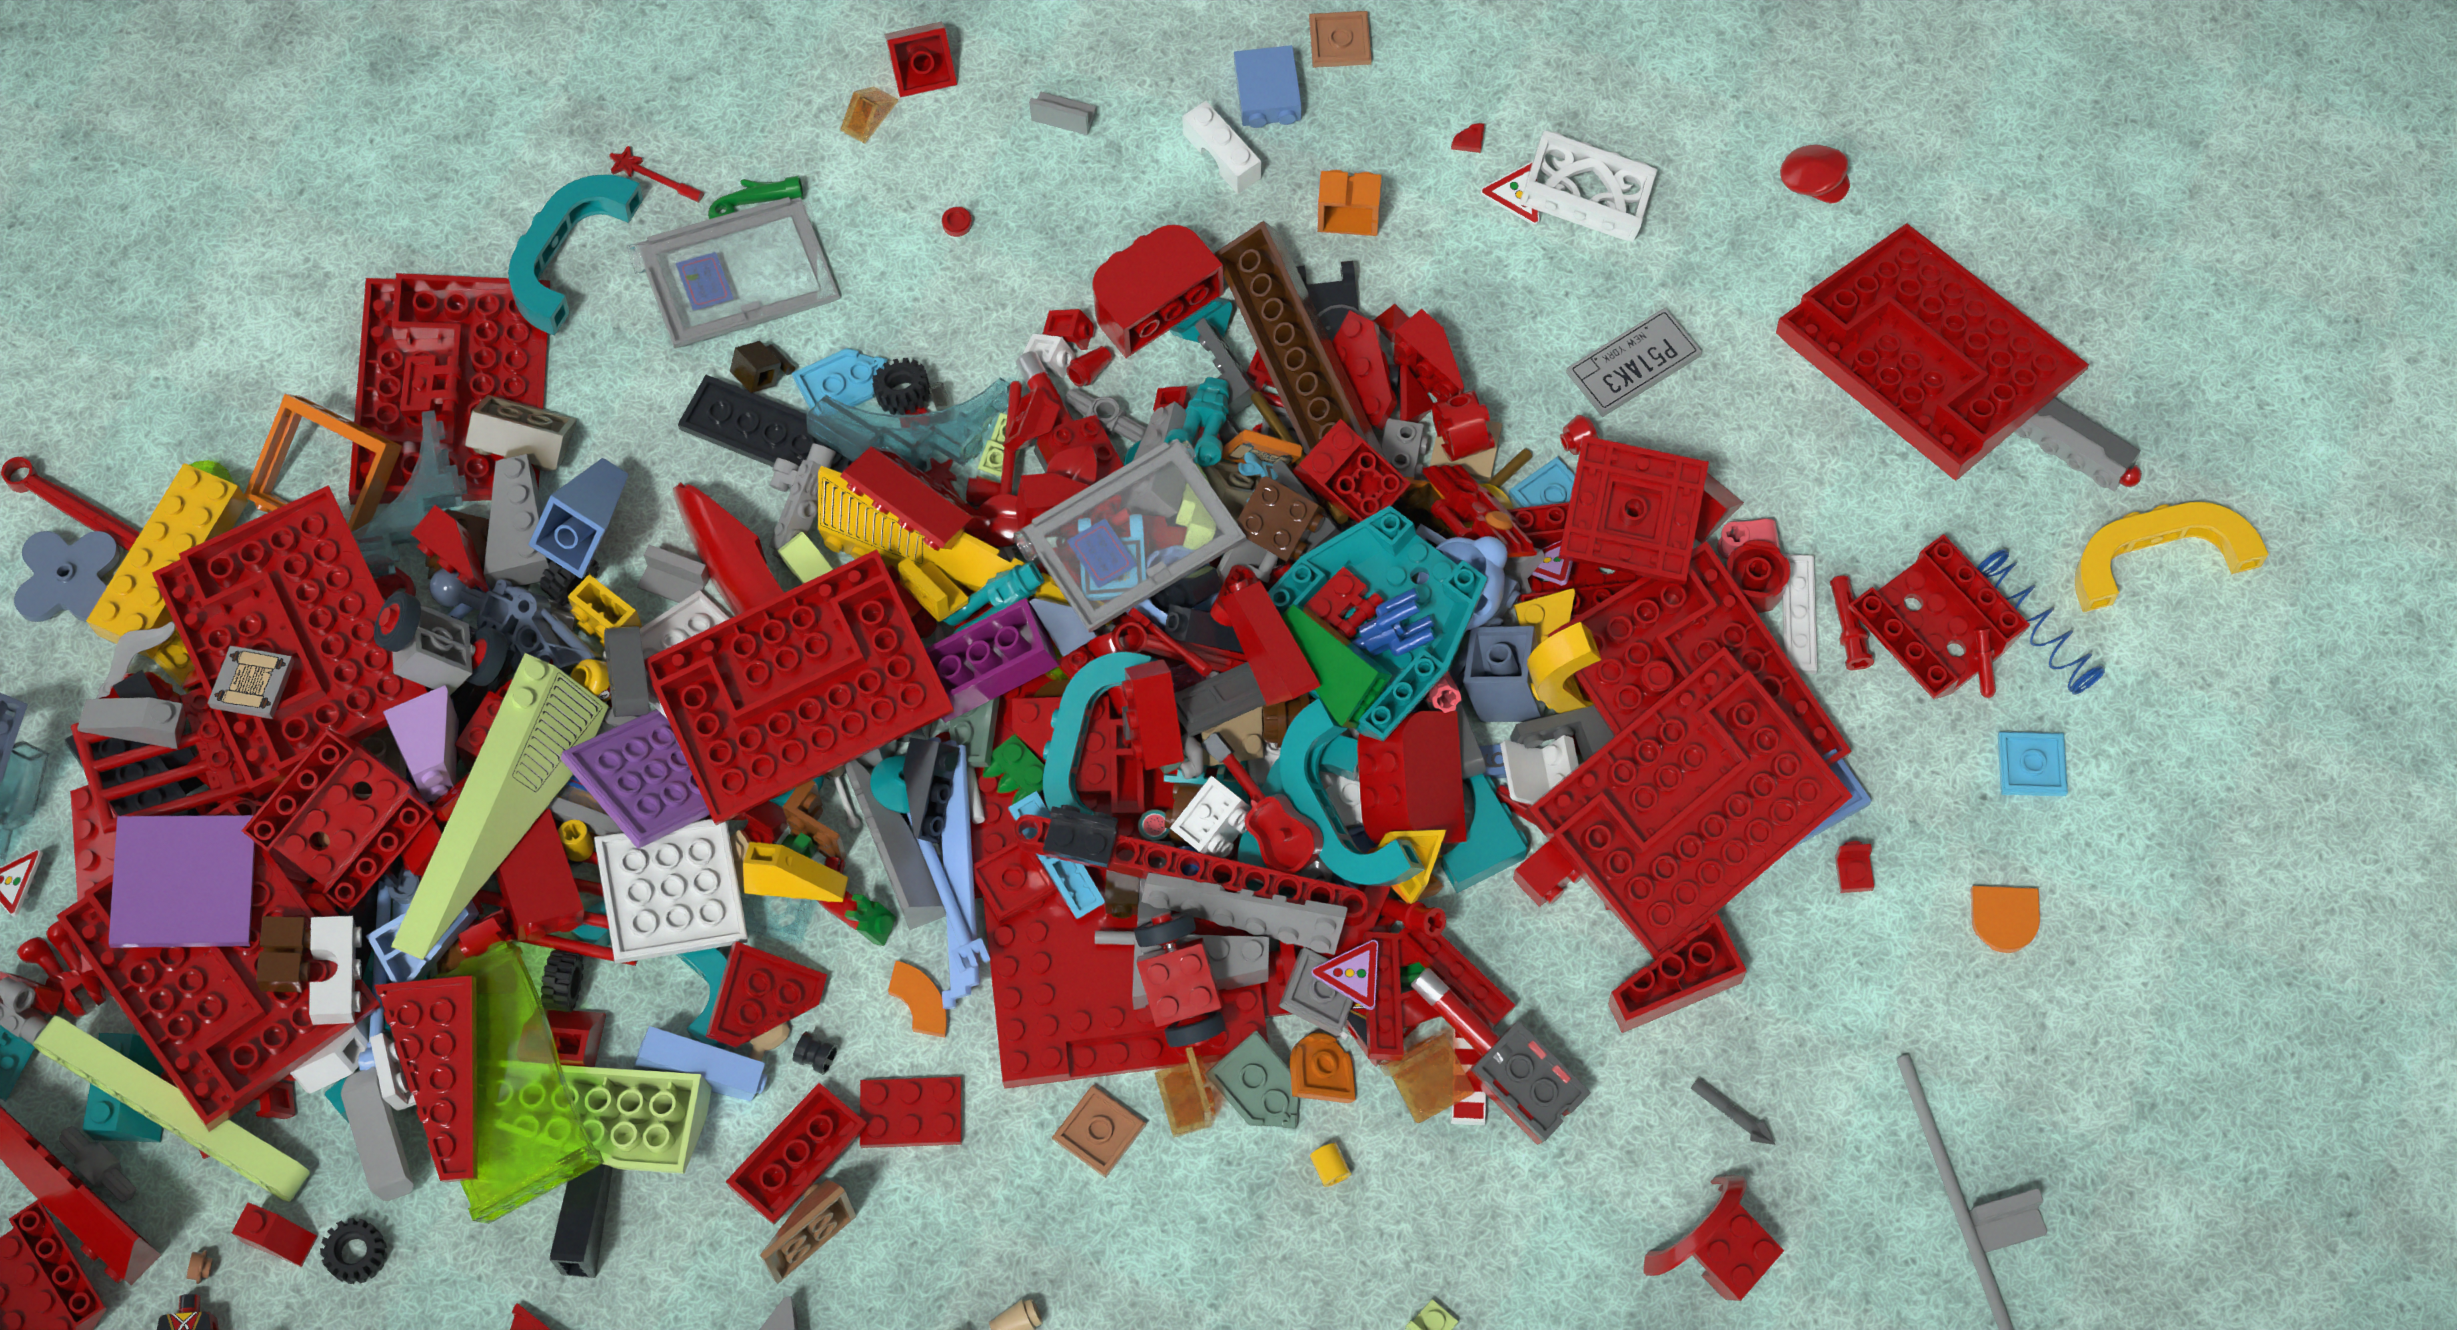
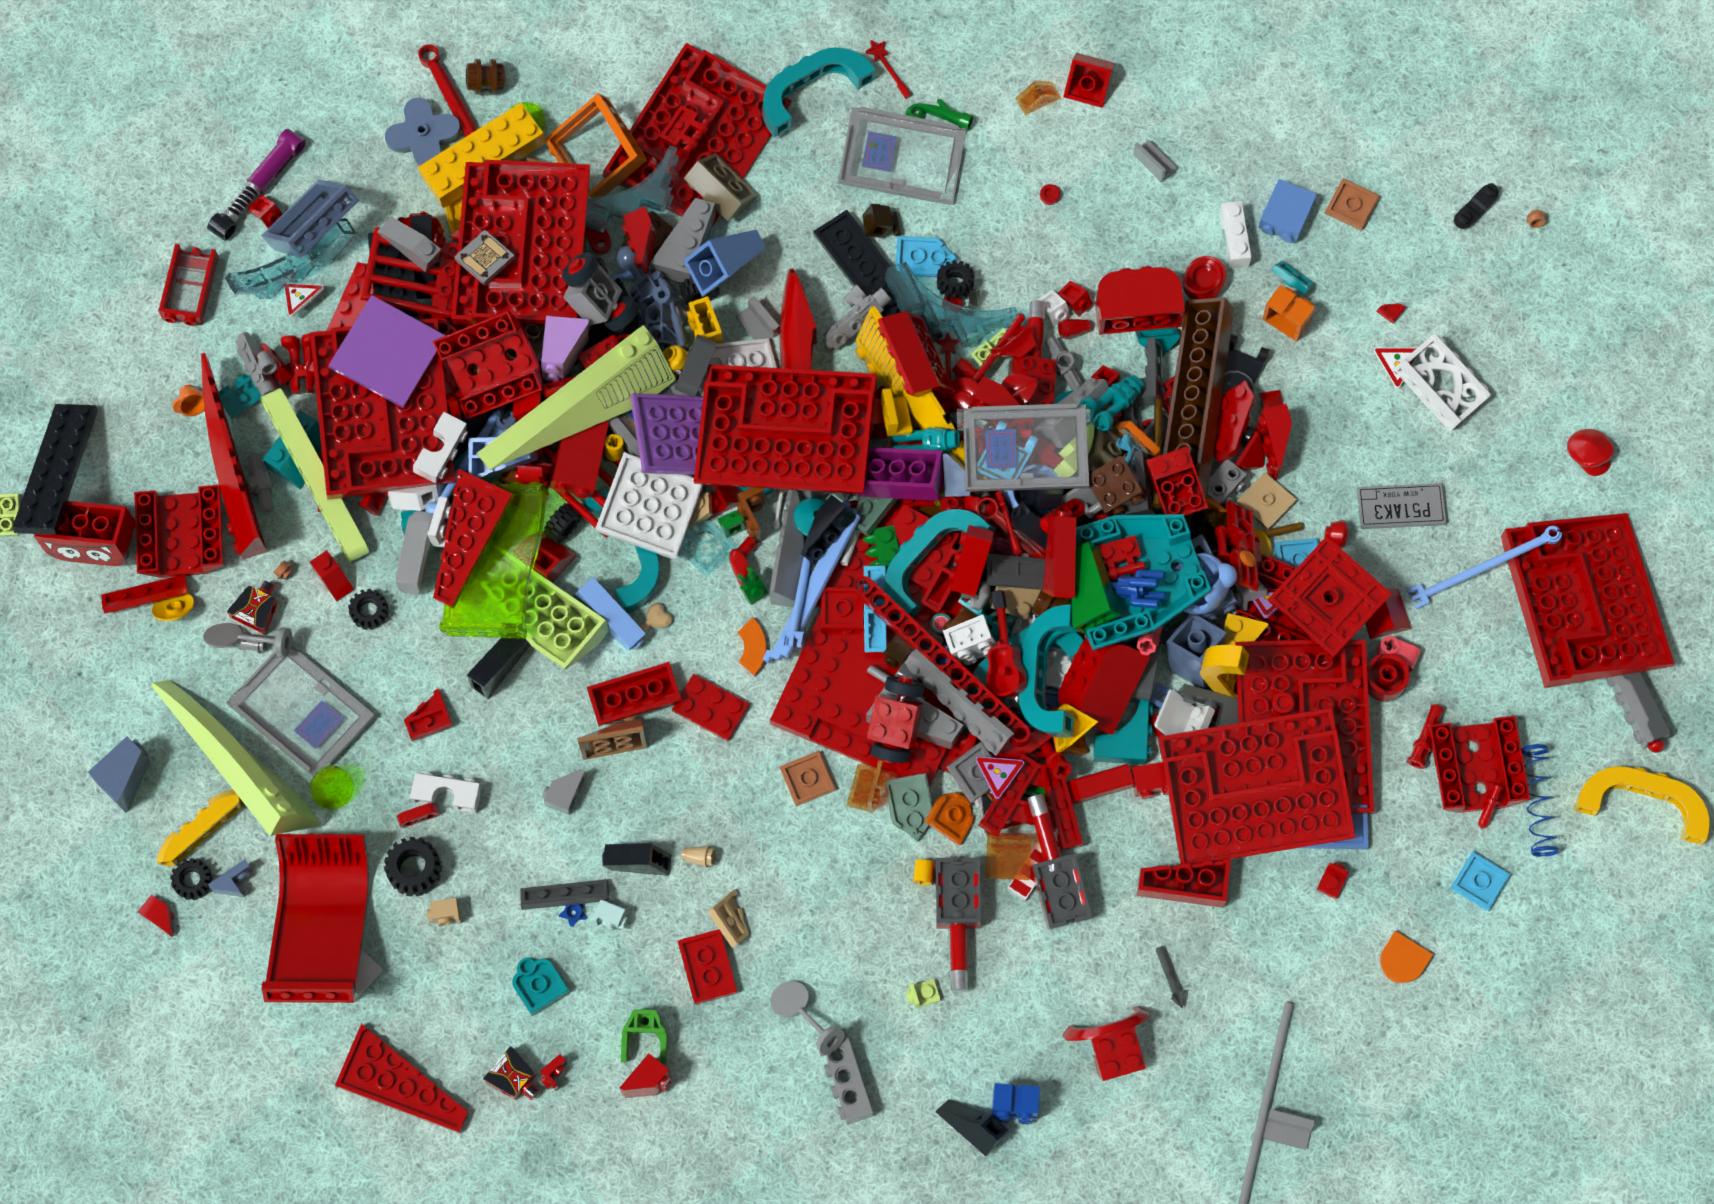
camera: 30 degrees right, 5 degrees up
(114, 459) = (485, 76): none -> reddish brown piece
(128, 647) = (431, 196): light grey piece -> none
(282, 960) = (420, 421): reddish brown piece -> none
(761, 994) = (665, 594): red plate -> none
(786, 873) = (718, 533): yellow slope -> none
(804, 558) = (837, 355): yellowish green slope -> none
(813, 1051) = (677, 643): black wheel -> none
(1081, 835) = (889, 606): black bracket -> none
(1217, 216) = (1204, 278): none -> red piece
(1325, 160) = (1293, 277): none -> teal plate
(1407, 1185) = (958, 910): none -> dark grey piece
(1462, 425) = (1267, 488): red brick -> none
(1488, 914) = (1100, 784): none -> red piece
(1731, 452) = (1423, 594): none -> light blue hinge
(1800, 615) = (1400, 714): white tile -> none

